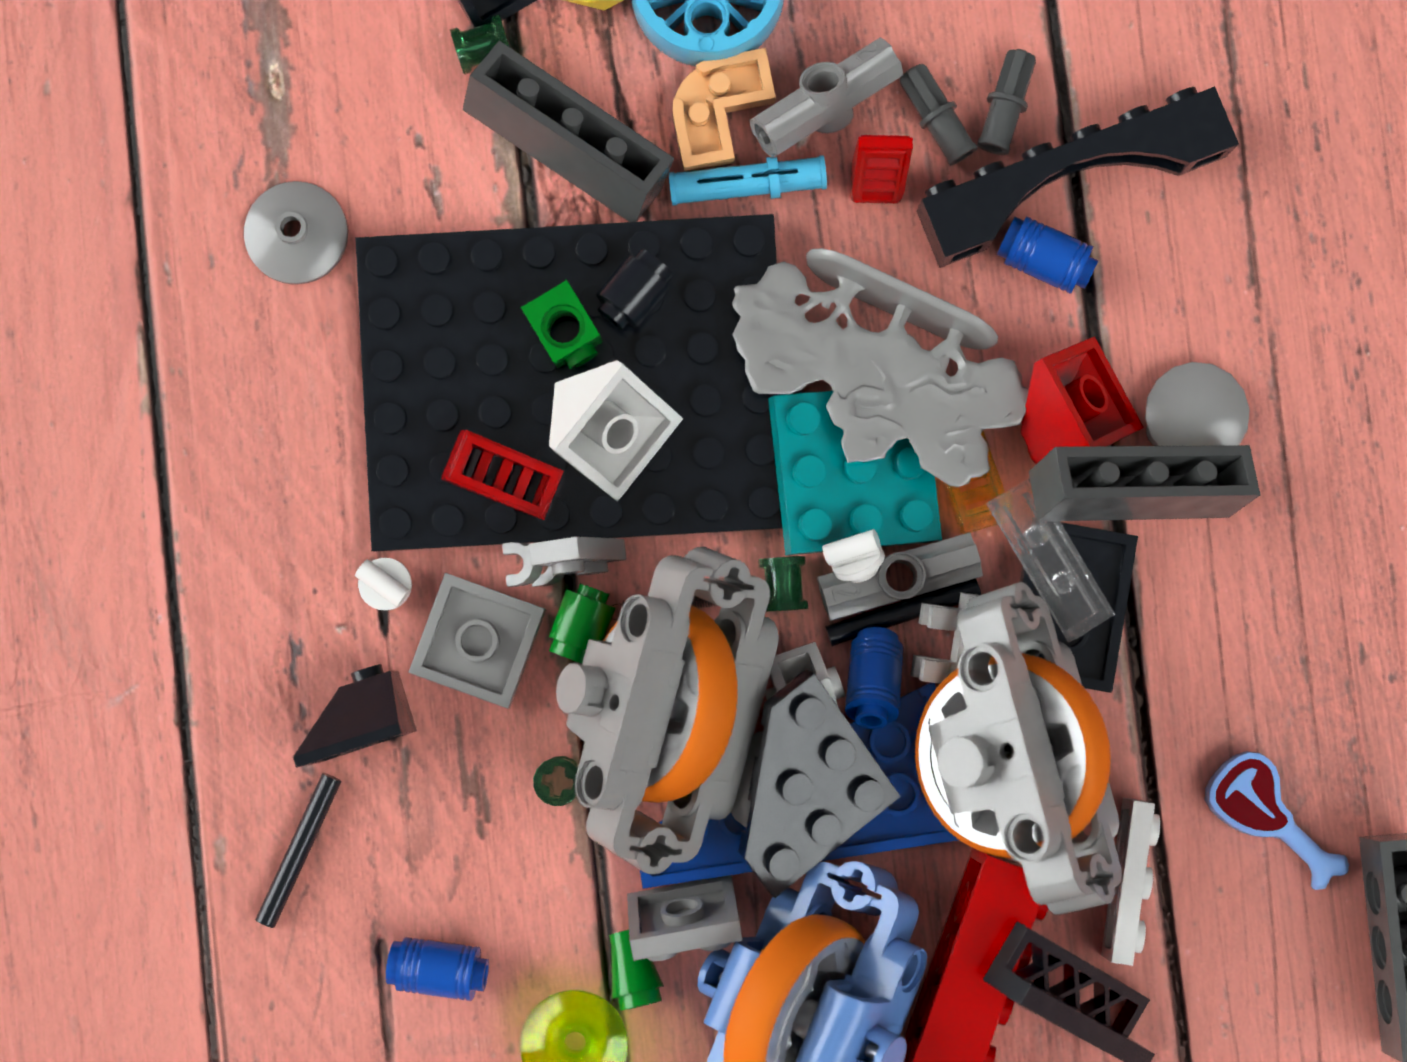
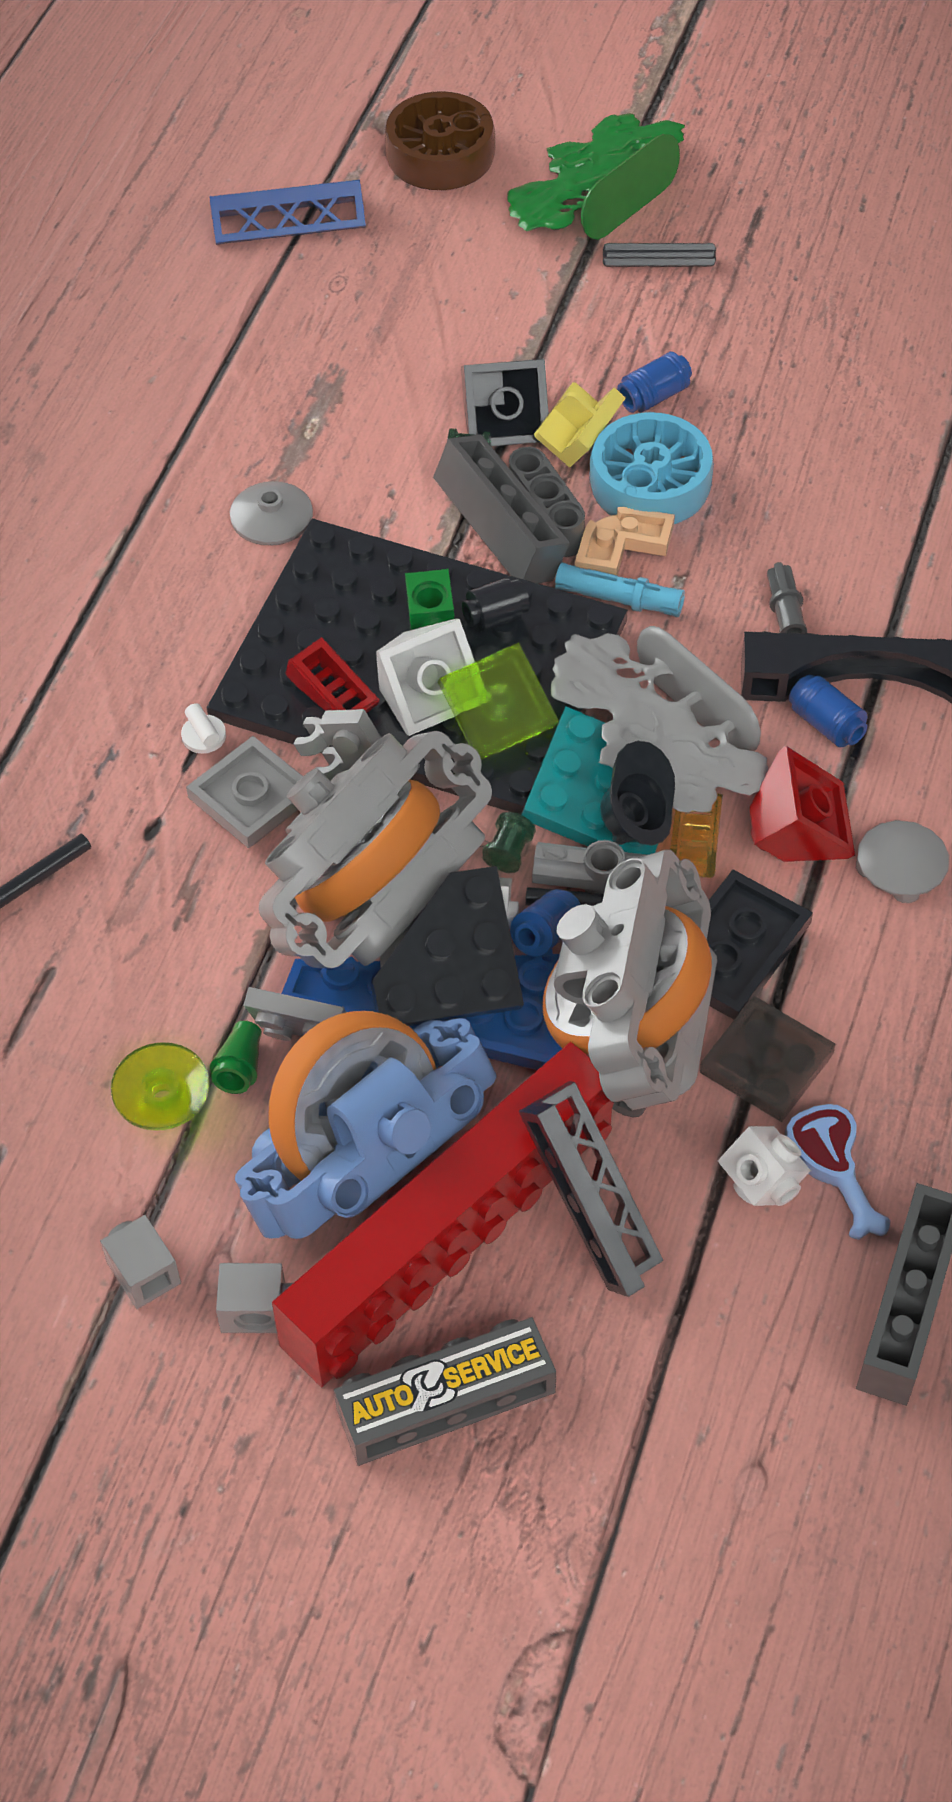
camera: 25 degrees right, 30 degrees down
(359, 717) = (124, 801): black slope -> none
(436, 968) = (84, 991): blue head -> none
(545, 790) = (249, 893): clear green bush -> none
(600, 66) = (551, 493): none -> dark grey beam
(700, 427) = (498, 701): none -> clear neon green plate
(826, 97) = (704, 556): light grey piece -> none
(855, 557) = (573, 821): white plate -> none
(880, 168) = (723, 607): red slope -> none
(917, 501) = (640, 795): none -> black piece
(1007, 102) = (845, 611): dark grey axle -> none
(1051, 563) = (731, 891): clear tile -> none
(1123, 930) = (688, 1155): white plate -> none
(1143, 482) = (831, 862): dark grey brick -> none
(1162, 728) = (767, 1058): none -> clear smoke plate
(1213, 867) = (764, 1166): none -> white brick

